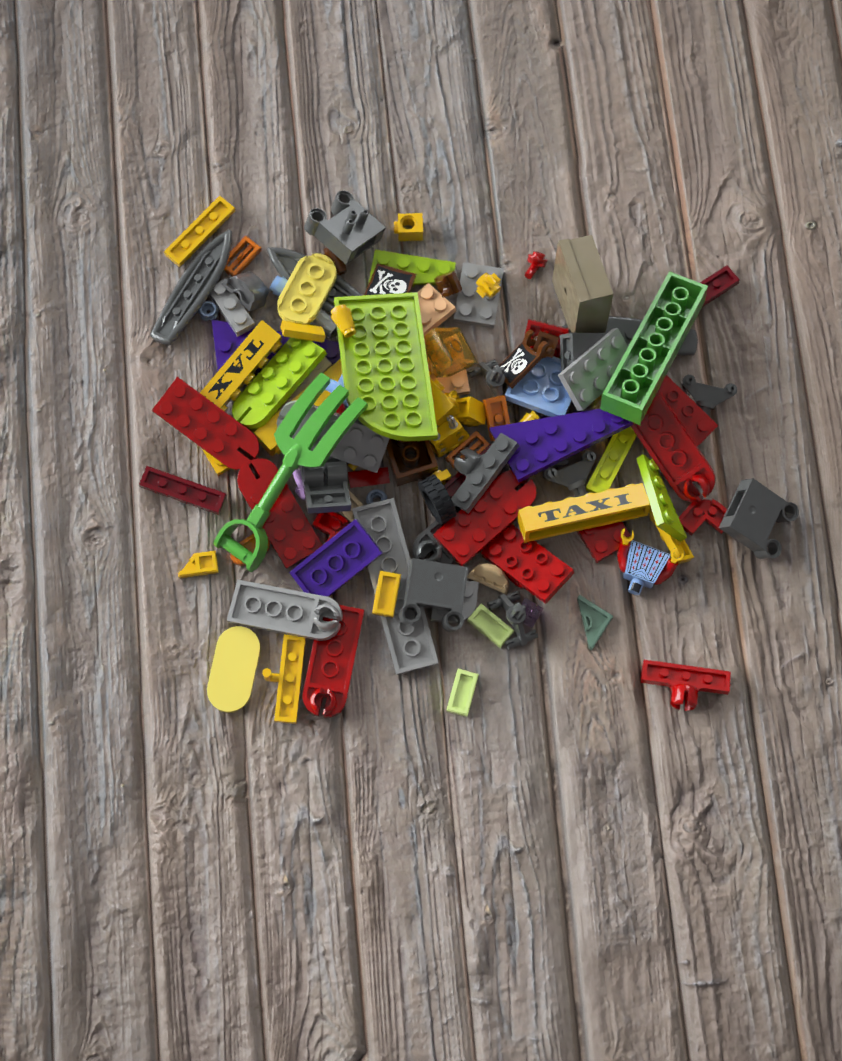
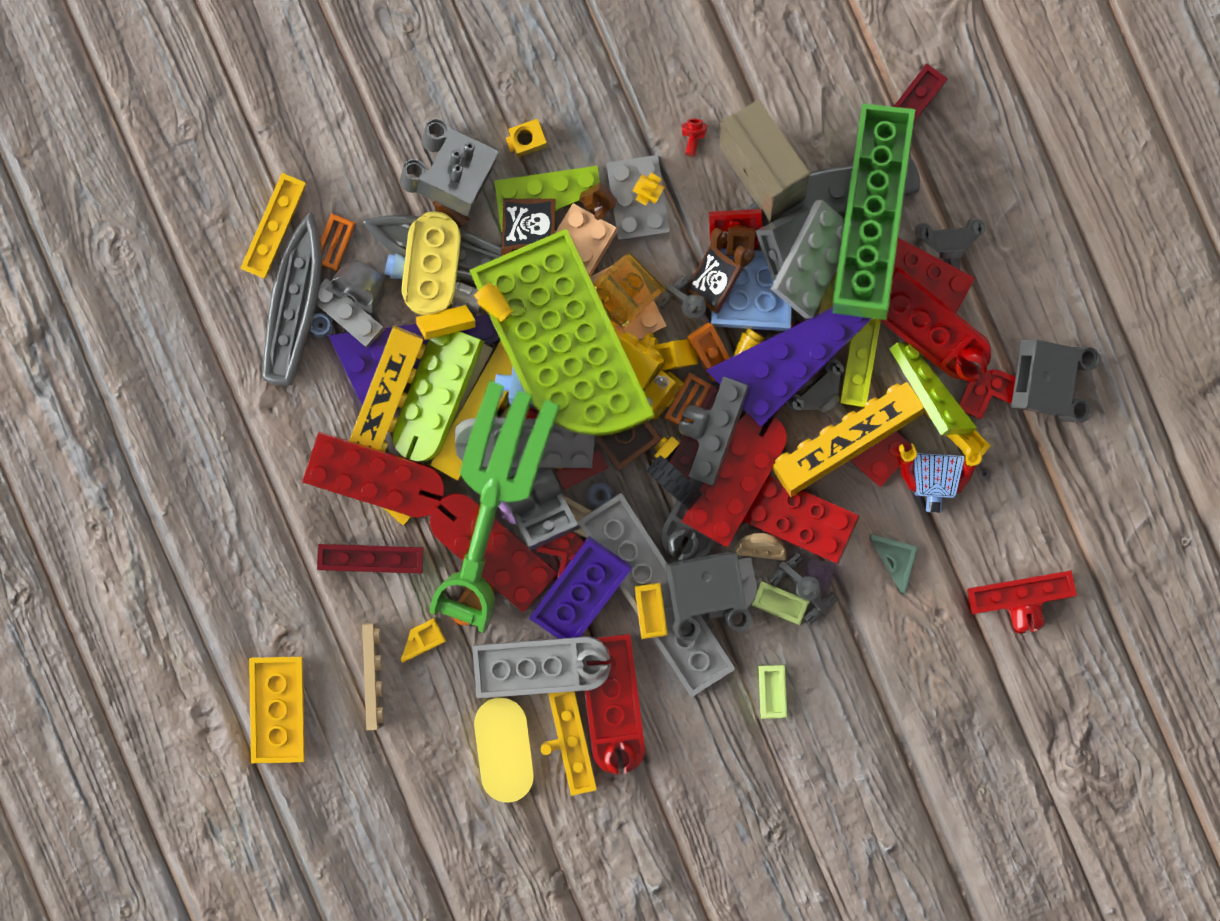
camera: 15 degrees left, 15 degrees up
(67, 580) = (277, 709): none -> yellow plate
(148, 586) = (372, 665): none -> tan plate

